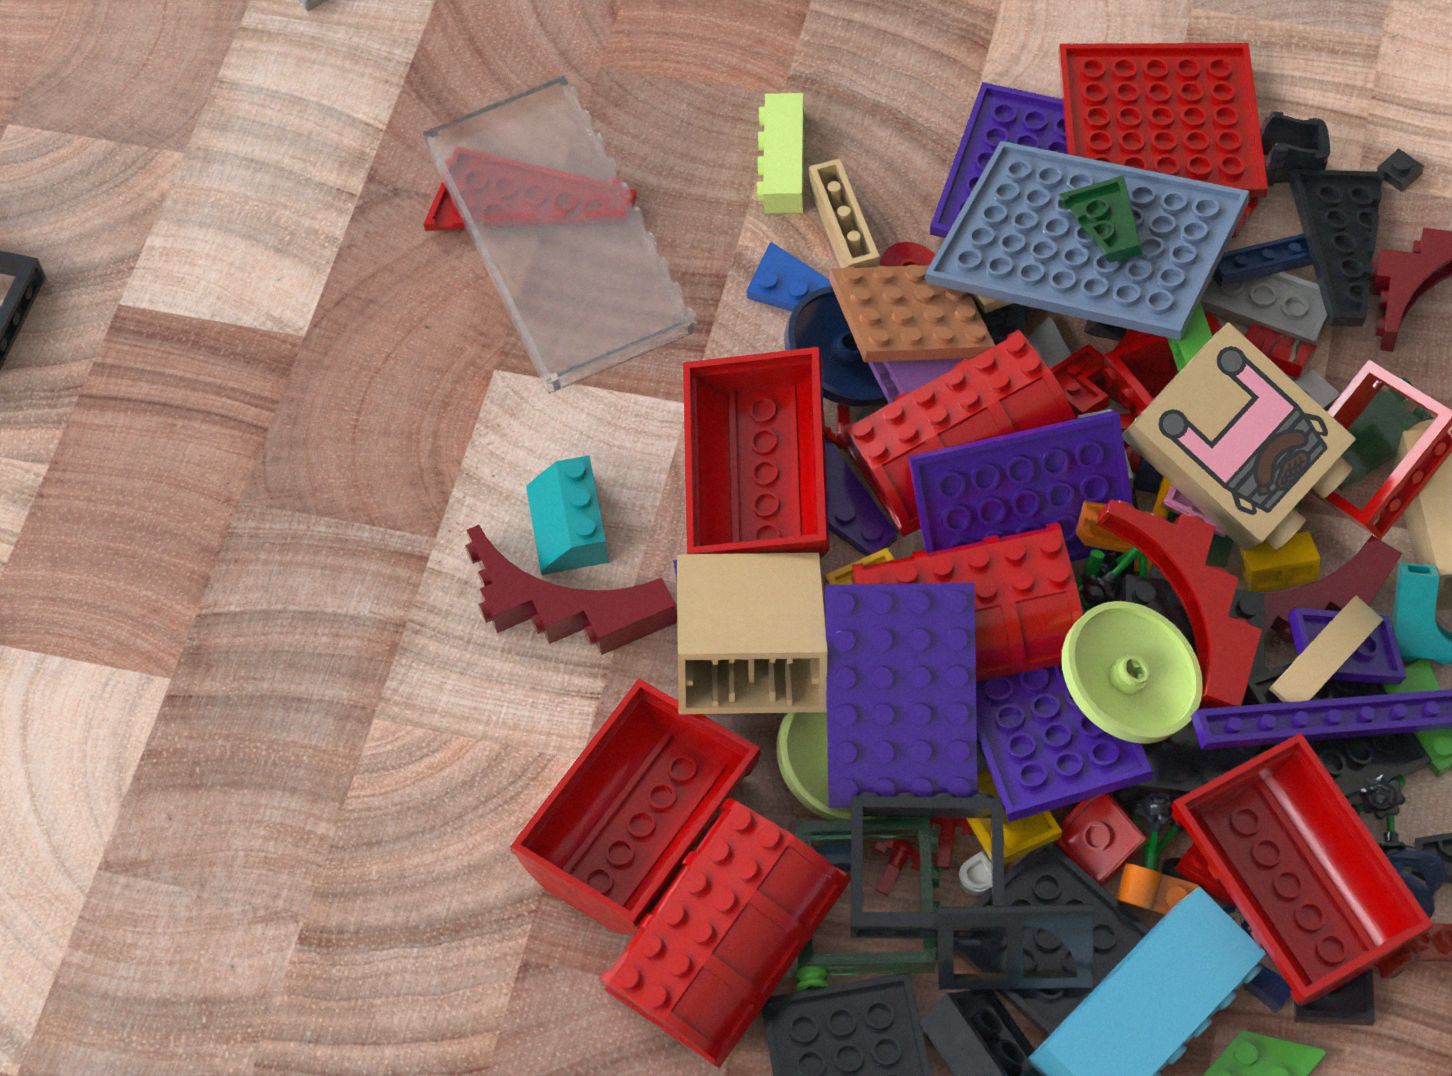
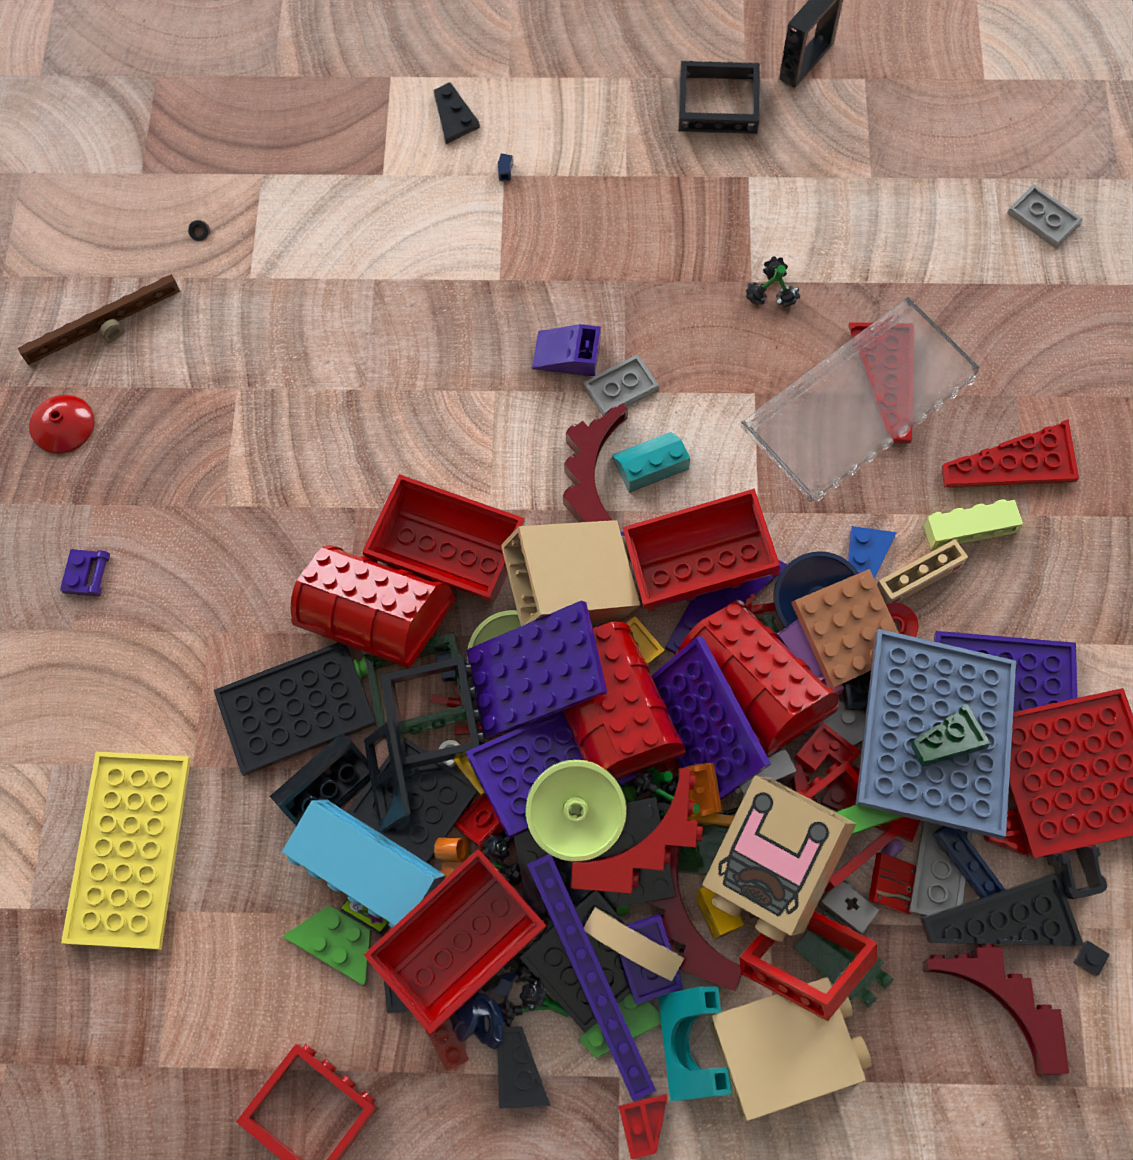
camera: 75 degrees right, 10 degrees up
(343, 592) = (568, 349): none -> dark purple slope
(349, 292) = (775, 271): none -> black plant
(426, 538) = (621, 384): none -> light grey tile
(703, 77) = (1028, 459): none -> red wing
(1210, 1044) = (360, 914): none -> slope

